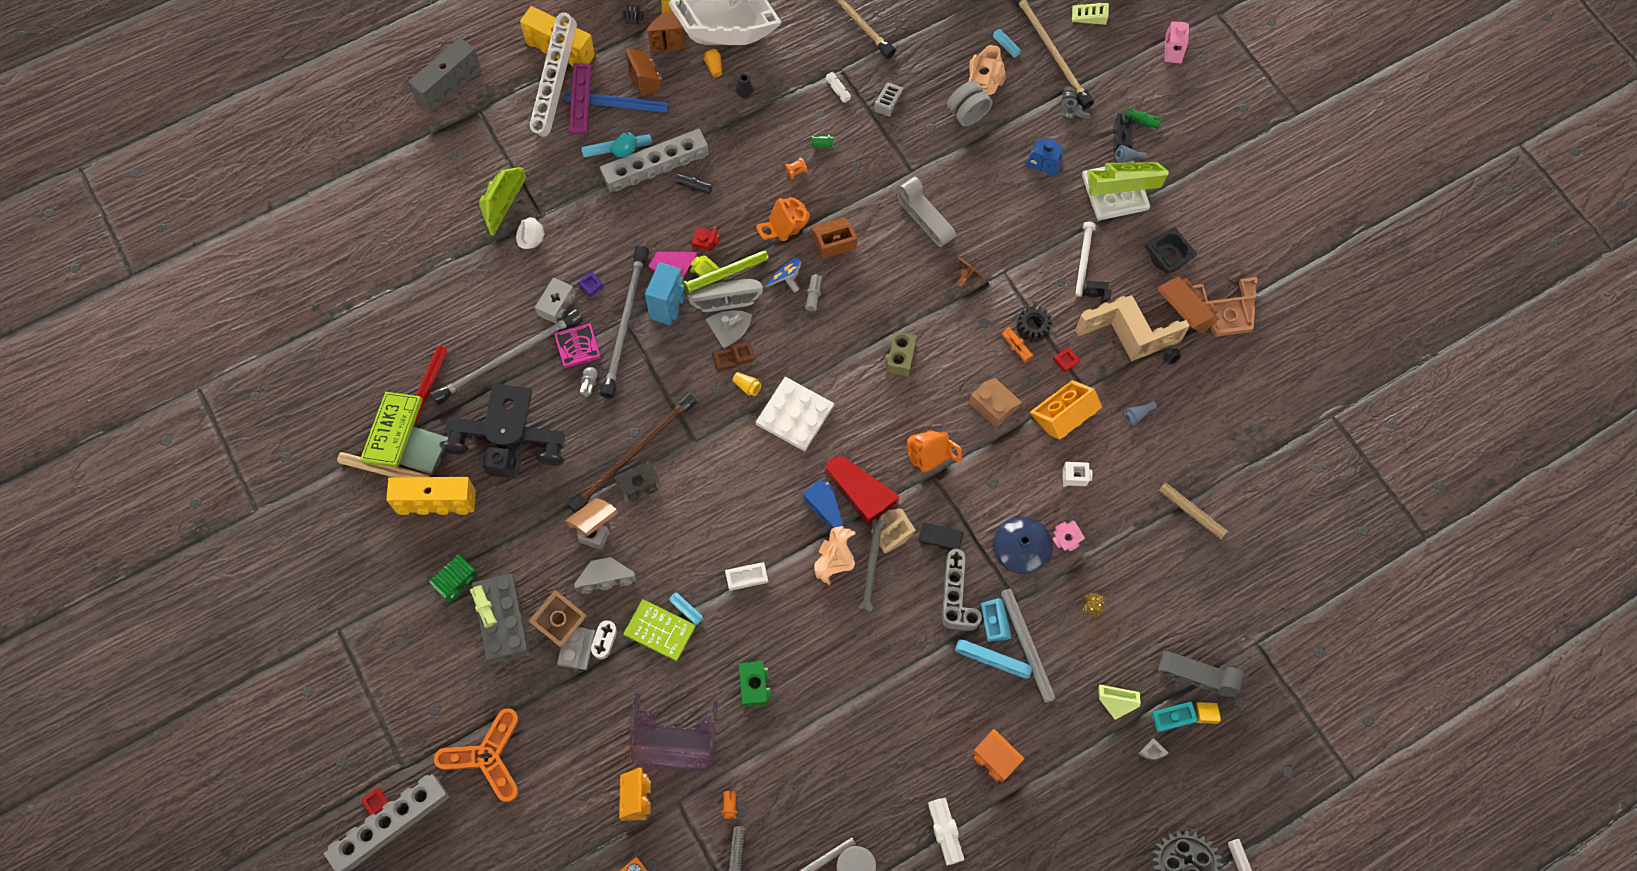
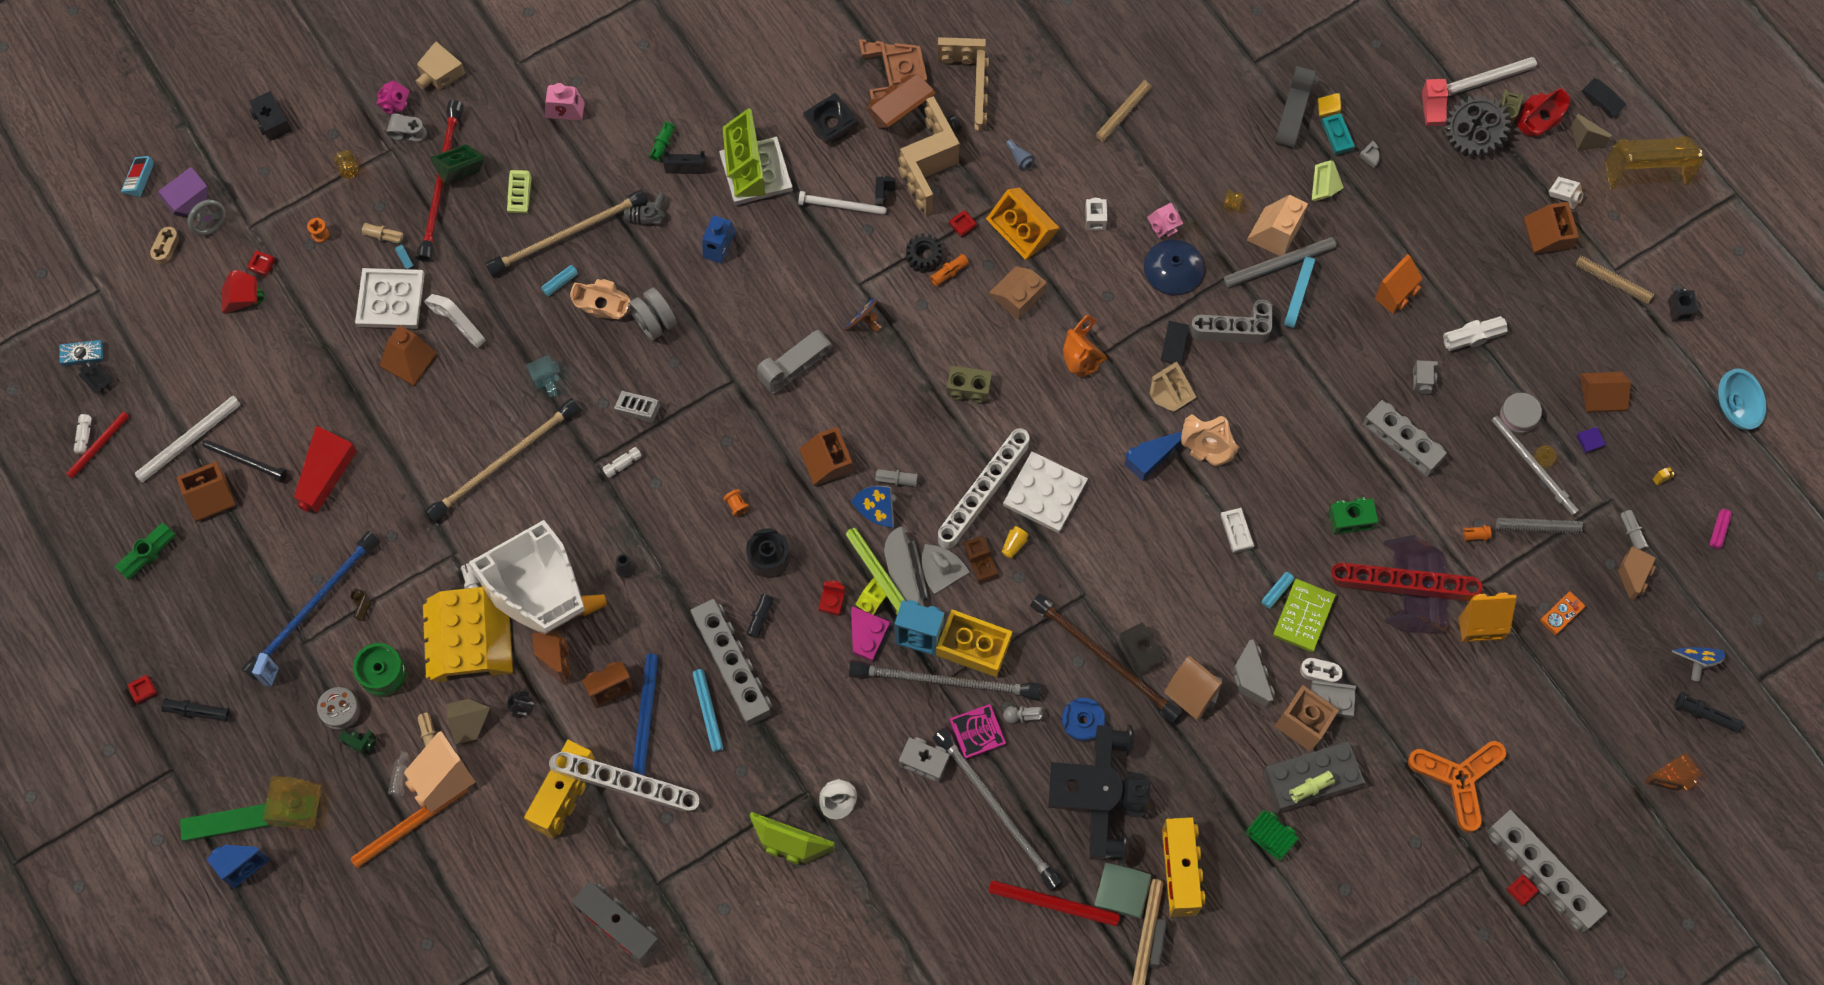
camera: 90 degrees left, 0 degrees up
(371, 473) = (1157, 944): none -> dark grey tile
(391, 429) = (1103, 926): lime tile -> none
(575, 421) = (1085, 709): none -> blue plate
(580, 98) = (646, 756): magenta tile -> none
(590, 284) = (896, 725): dark purple tile -> none
(624, 145) = (717, 693): teal hair -> none
(652, 342) = (973, 643): none -> yellow brick
(673, 730) = (1397, 575): none -> red beam
(747, 188) = (770, 564): none -> black brick
(785, 219) = (808, 509): orange piece -> none
(802, 368) = (980, 497): none -> white beam
(823, 141) = (698, 475): green pin -> none
(851, 718) = (1405, 448): none -> light grey brick
(861, 490) = (1133, 418): red slope -> none
(877, 527) = (1171, 402): dark grey piece -> none
(898, 772) = (1424, 376): none -> light grey brick
(918, 29) = (544, 374): none -> clear light blue brick
(996, 620) = (1251, 292): medium azure slope -> none
(1062, 644) = (1278, 225): none -> light nougat slope
(1126, 154) = (712, 159): sand blue cone -> none
(1216, 378) = (967, 52): none -> tan bracket
(1216, 823) = (1435, 102): none -> coral arch

